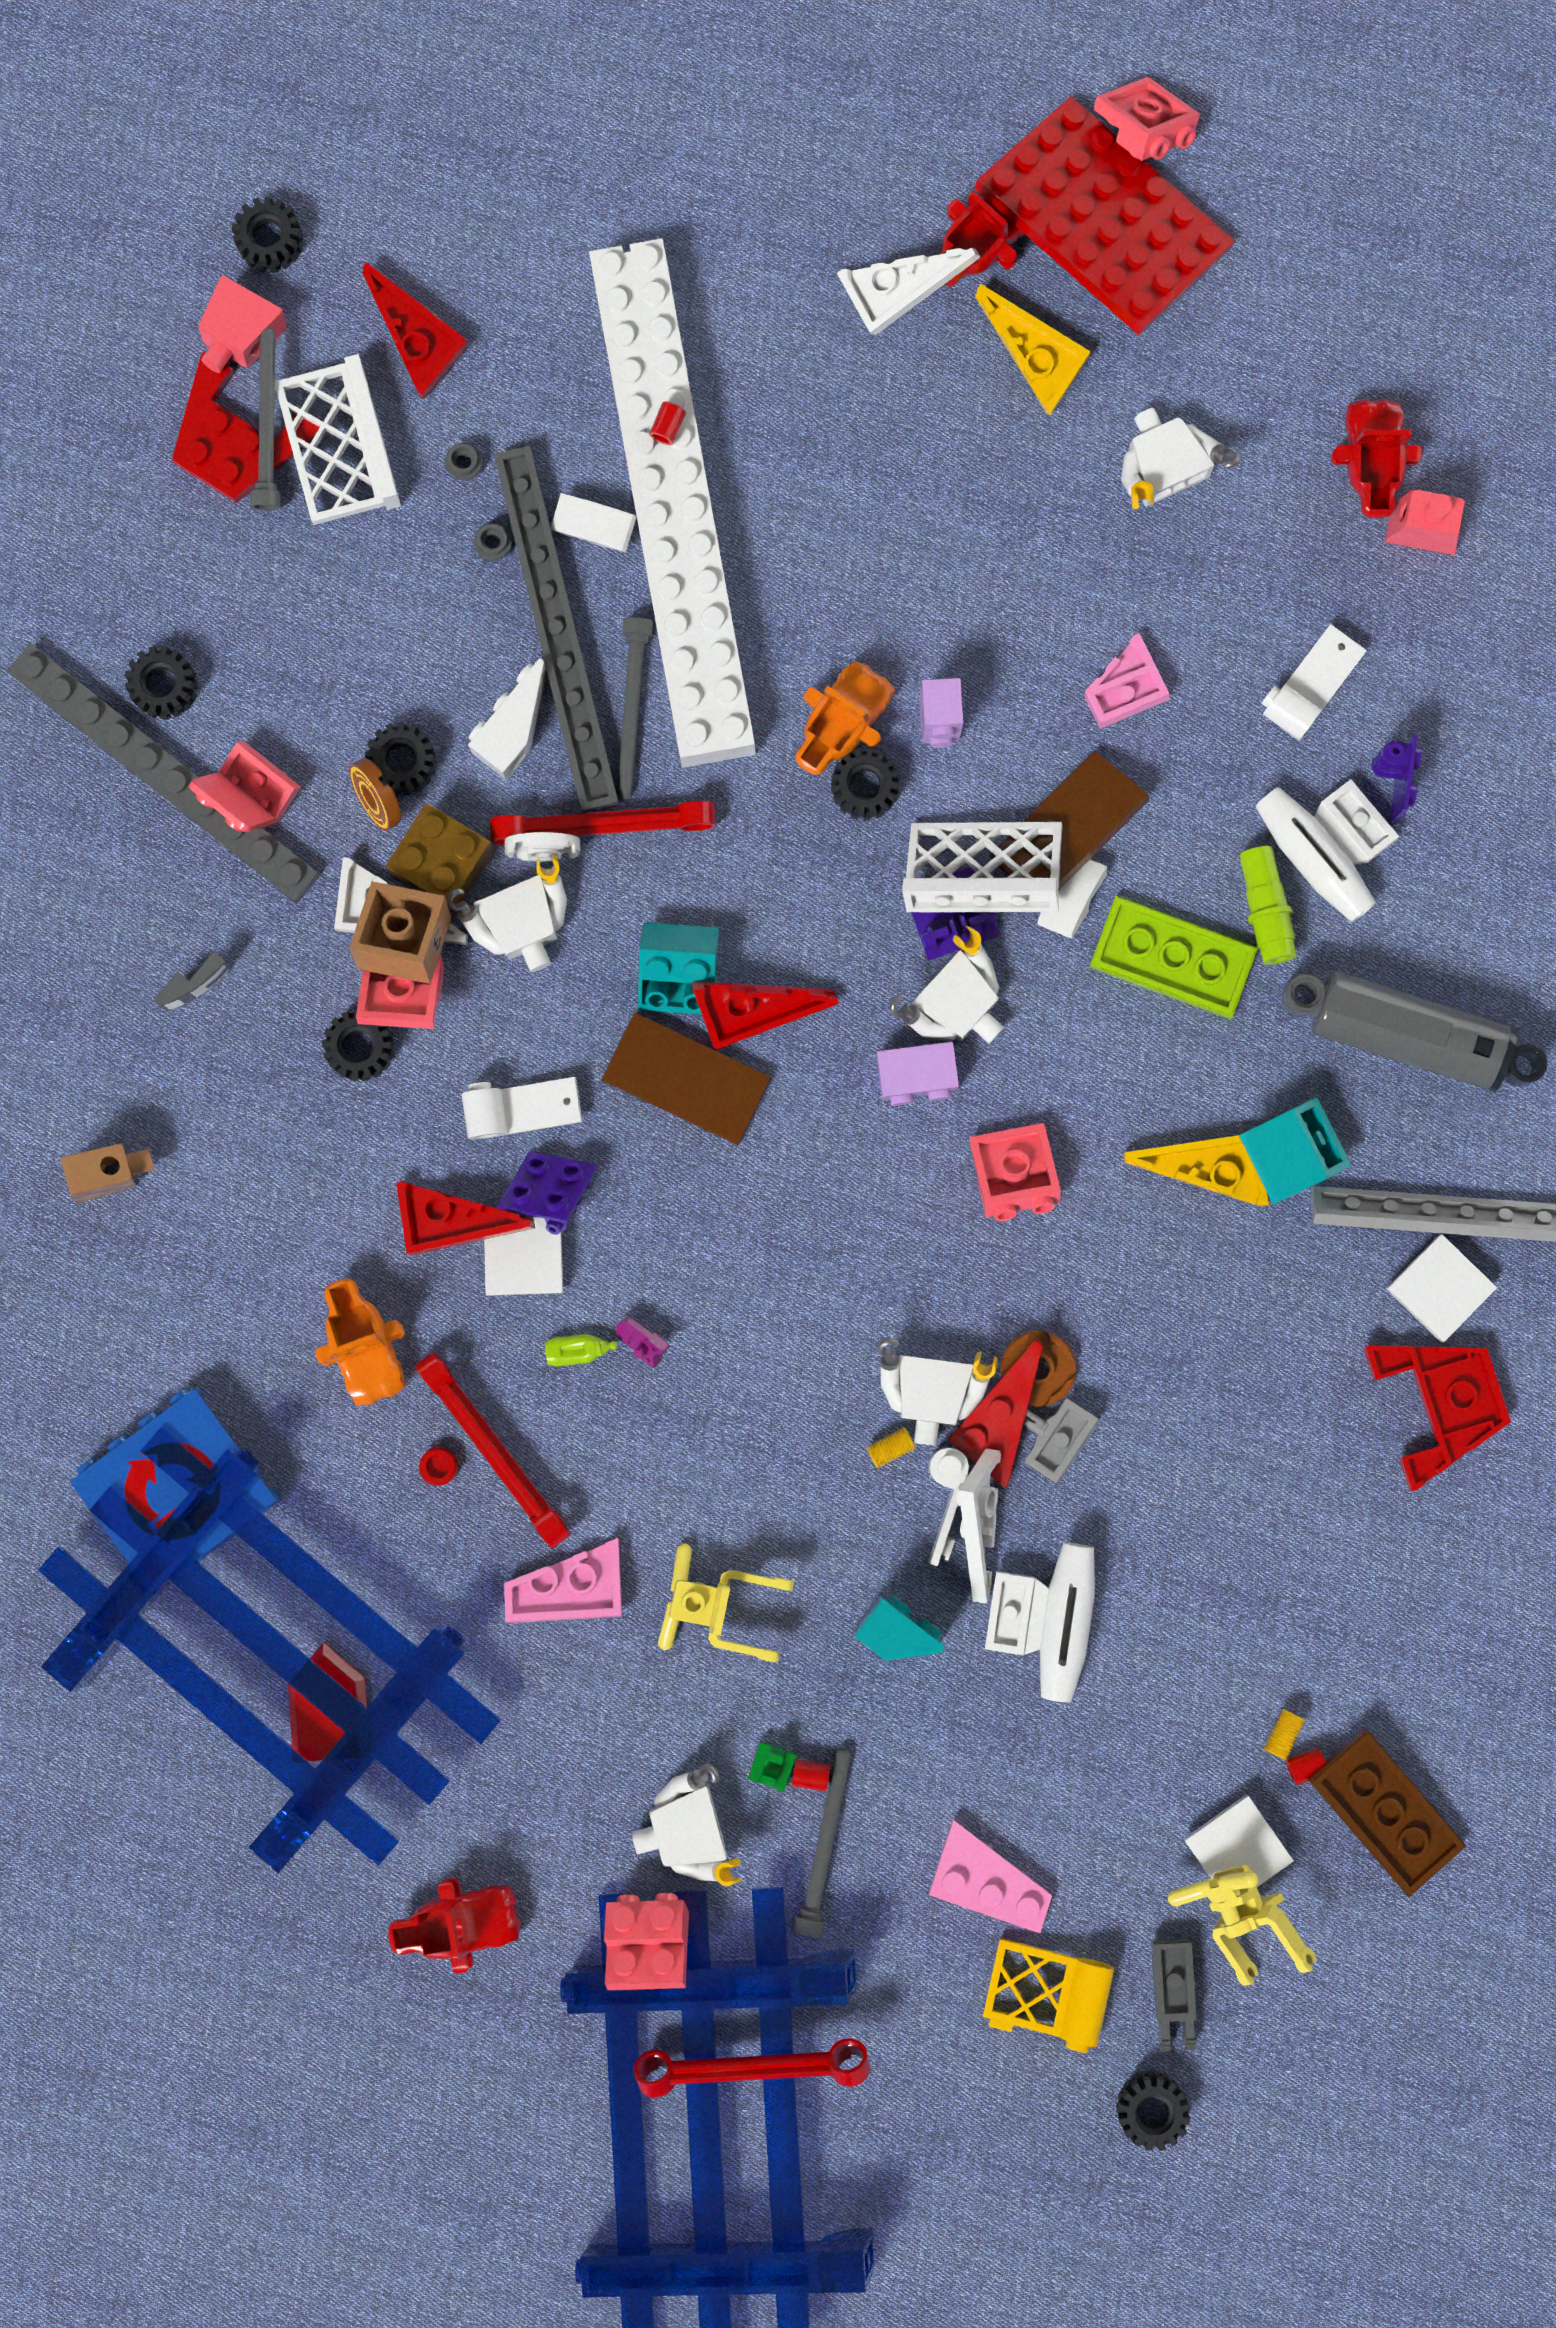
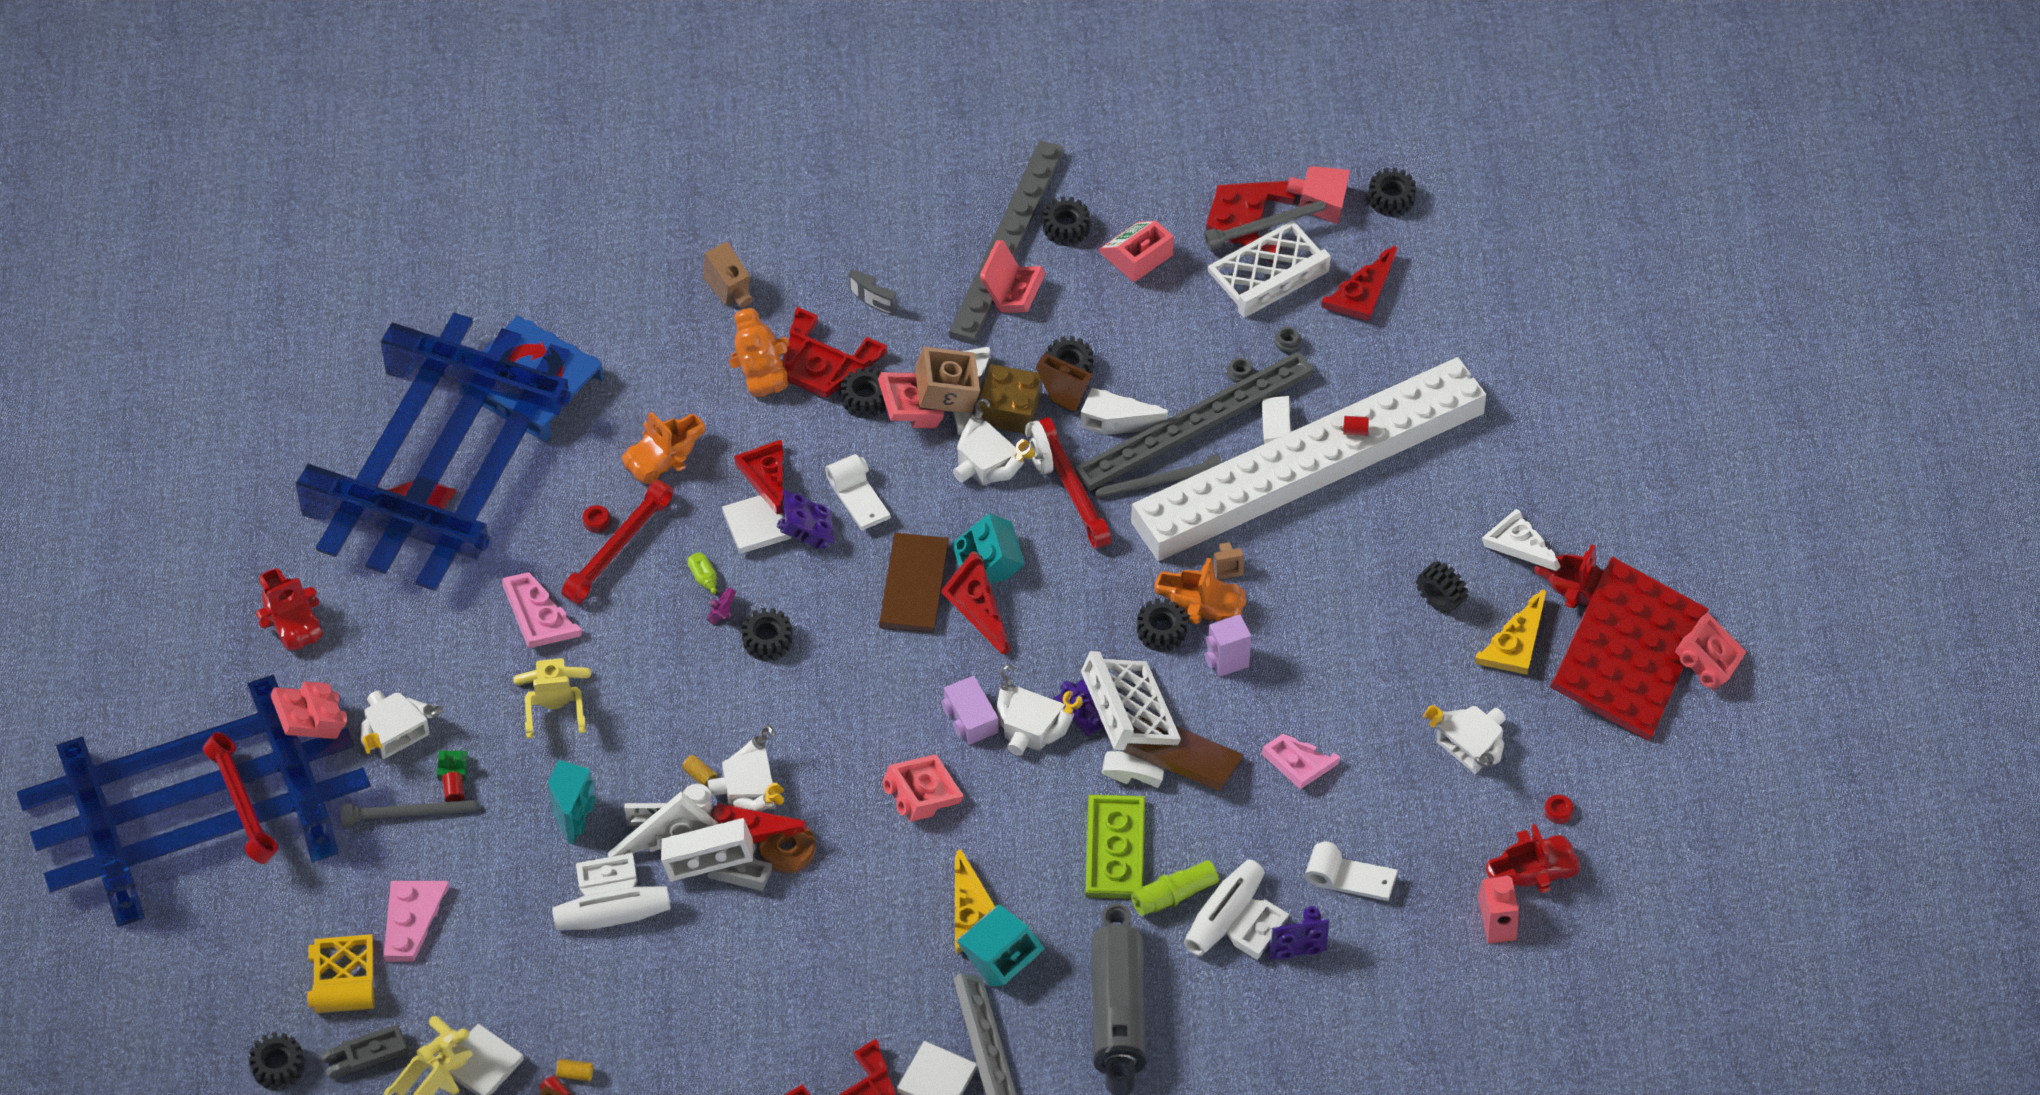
camera: 65 degrees right, 30 degrees down
(244, 603) = (1139, 249): none -> coral slope
(260, 1169) = (759, 354): none -> orange piece
(287, 1096) = (818, 365): none -> red wing
(375, 798) = (1037, 347): dark orange tile -> none
(444, 777) = (1063, 381): none -> reddish brown slope
(691, 1279) = (768, 647): none -> black tyre
(796, 665) = (1228, 562): none -> medium nougat tile
(939, 410) = (1442, 587): none -> black tyre
(1032, 1477) = (707, 849): none -> white brick
(1297, 396) = (1558, 809): none -> red tile

